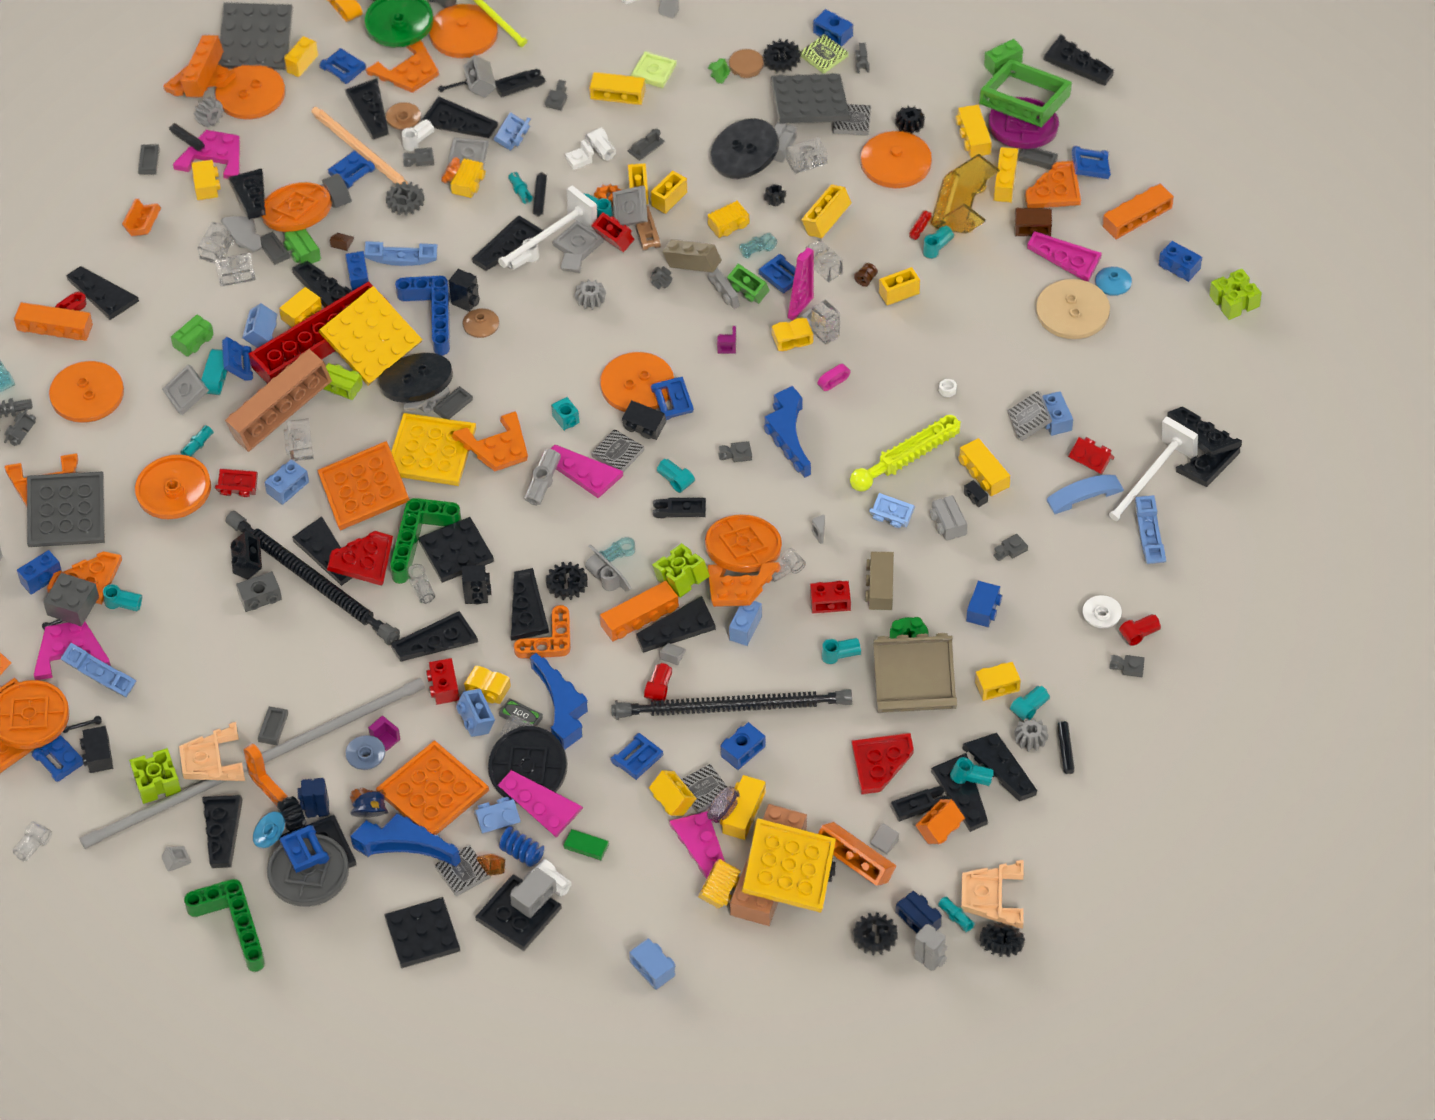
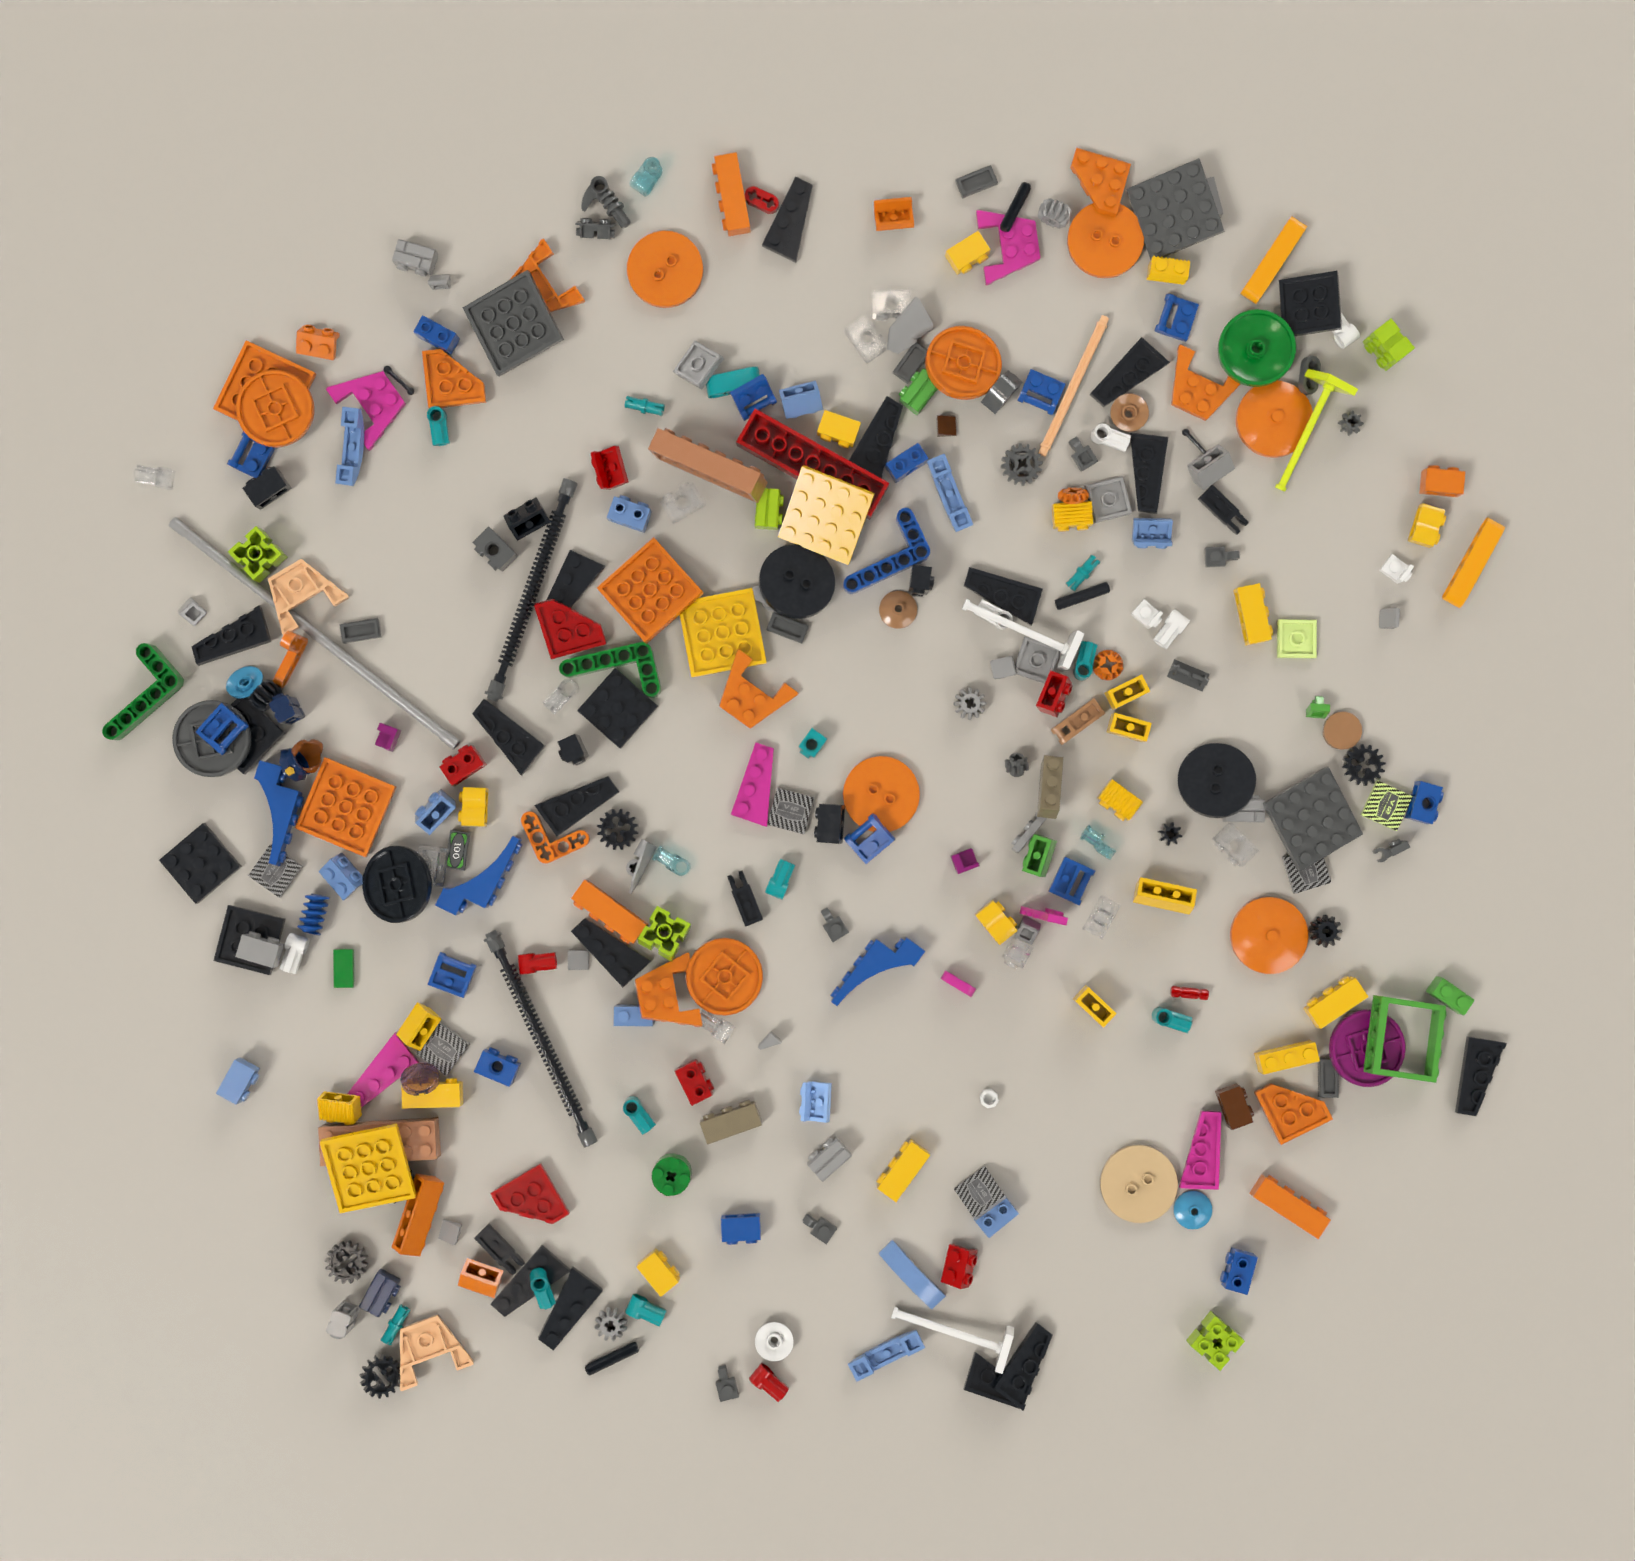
camera: 70 degrees right, 35 degrees up
(71, 599) = (409, 383): dark grey brick -> none
(97, 720) = (305, 468): black hinge -> none
(173, 487) = (577, 411): orange dish -> none
(192, 335) = (767, 338): bright green brick -> none
(202, 66) = (1104, 178): orange brick -> none
(250, 192) = (967, 306): black wing -> none
(364, 746) = (349, 729): sand blue dish -> none
(492, 864) = (289, 894): clear orange slope -> none
(541, 803) = (362, 917): dark pink wing -> none
(545, 468) = (737, 755): light grey piece -> none
(630, 206) = (1090, 698): light grey tile -> none
(867, 273) = (1101, 965): reddish brown bush -> none
(907, 452) = (842, 1060): neon yellow gear -> none
(914, 673) = (627, 1198): dark tan panel -> none
(958, 194) = (1233, 1017): clear yellow windscreen -> none
(975, 493) = (870, 1172): black piece -> none
(1088, 166) = (1332, 1140): blue plate -> none

